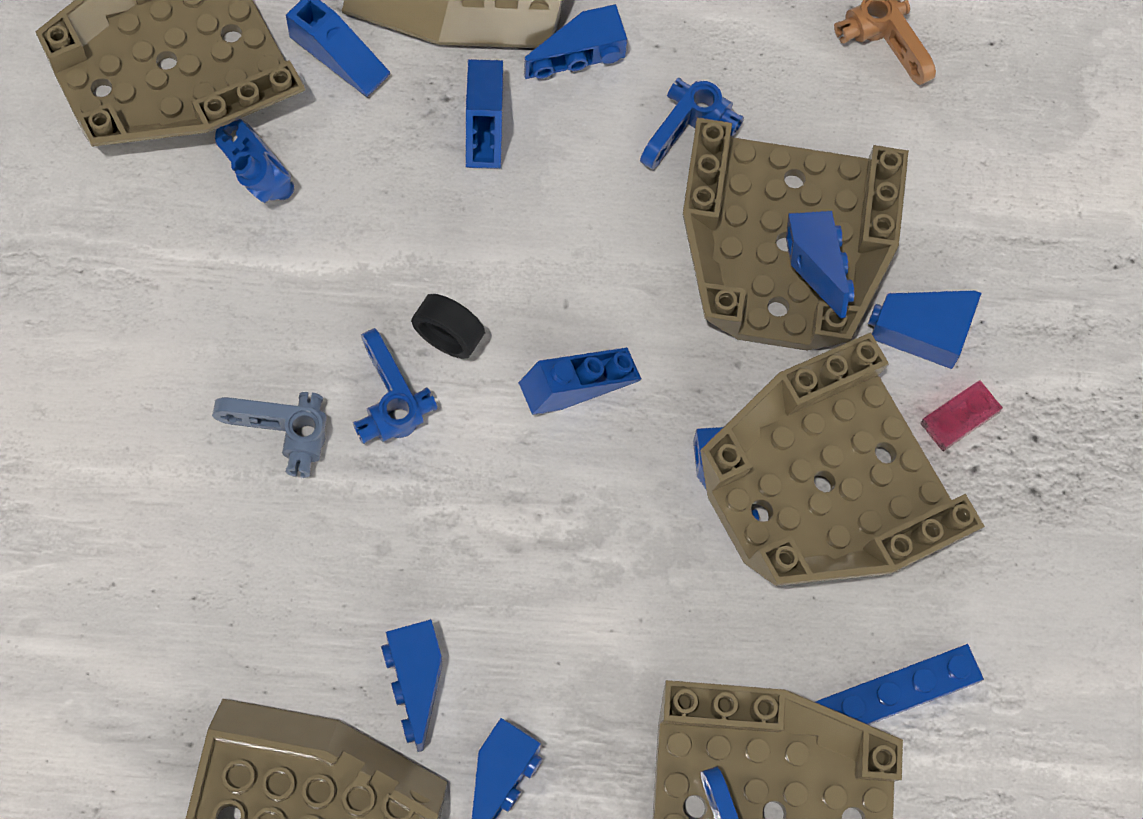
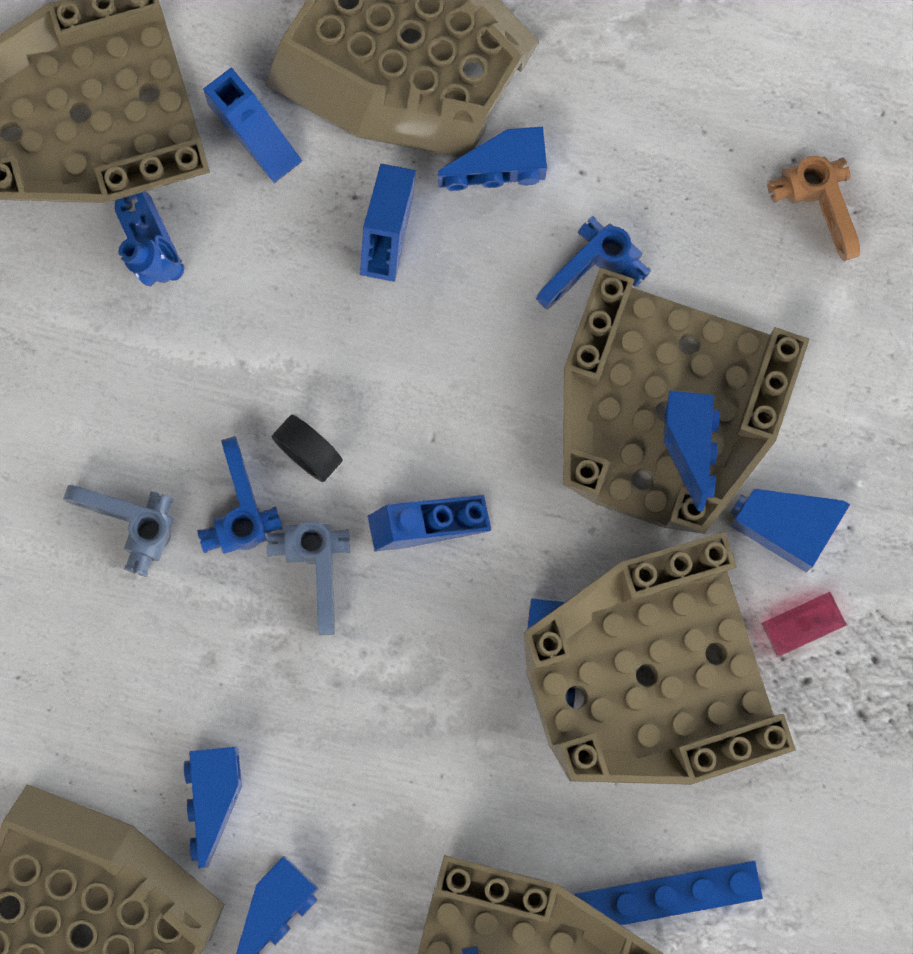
camera: 15 degrees right, 10 degrees up
(450, 423) = (291, 545): none -> sand blue piece

